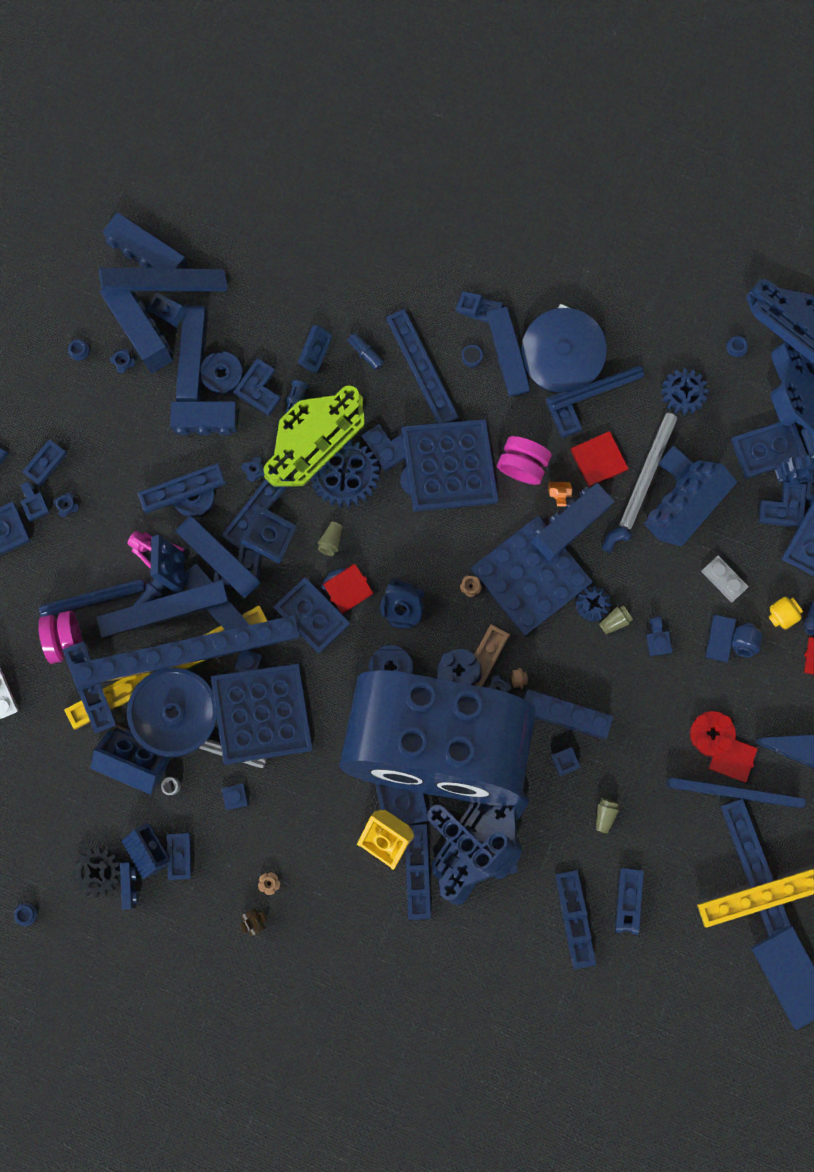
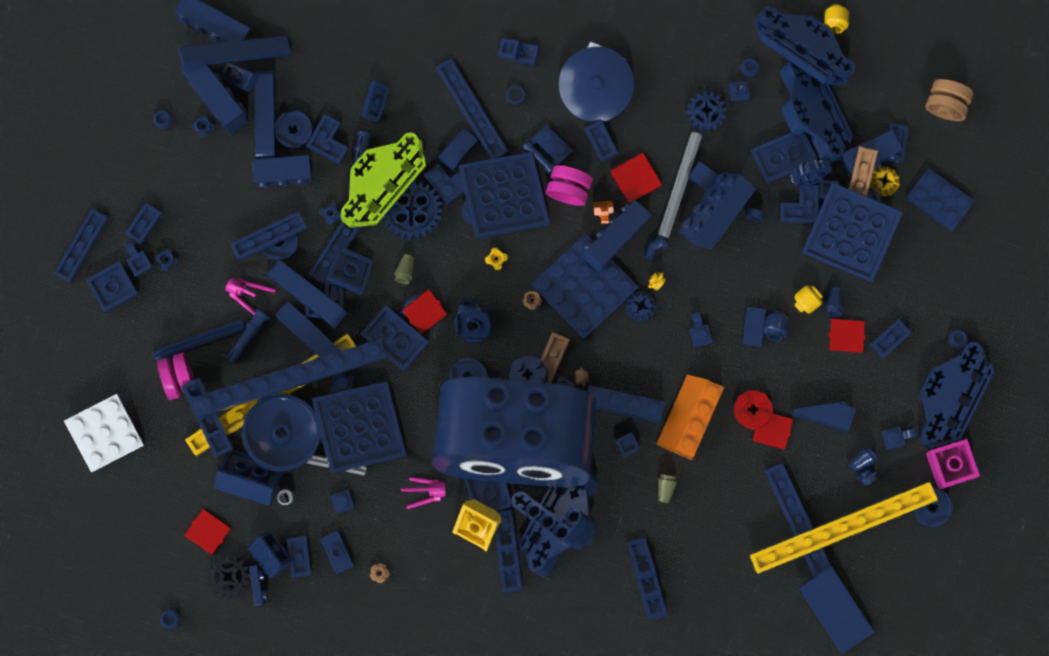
camera: 10 degrees left, 0 degrees up
(79, 817) = (207, 532): none -> red piece
(162, 609) = (263, 344): dark blue tile -> none
(167, 563) = (264, 304): dark blue plate -> none
(223, 855) = (337, 552): none -> dark blue plate
(253, 922) = (369, 606): dark brown gear -> none
(342, 792) = (435, 489): none -> dark pink plant
(365, 351) = (420, 99): dark blue axle -> none
(402, 409) = (457, 149): none -> dark blue slope
(428, 536) = (491, 258): none -> yellow plate
(507, 351) = (547, 89): dark blue slope -> none
(507, 414) = (552, 145): none -> dark blue plate
(595, 388) = (627, 115): dark blue axle -> none
(614, 576) = (657, 280): none -> yellow plate
(615, 620) = (661, 319): olive cone -> none
(629, 900) = (691, 558): dark blue plate -> none
(640, 735) = (690, 416): none -> orange slope
(722, 372) = (738, 91): none -> dark blue tile
(724, 579) = (754, 274): light grey plate -> none
(730, 511) = (754, 214): none -> dark blue tile
(735, 793) = (775, 458): dark blue tile -> none

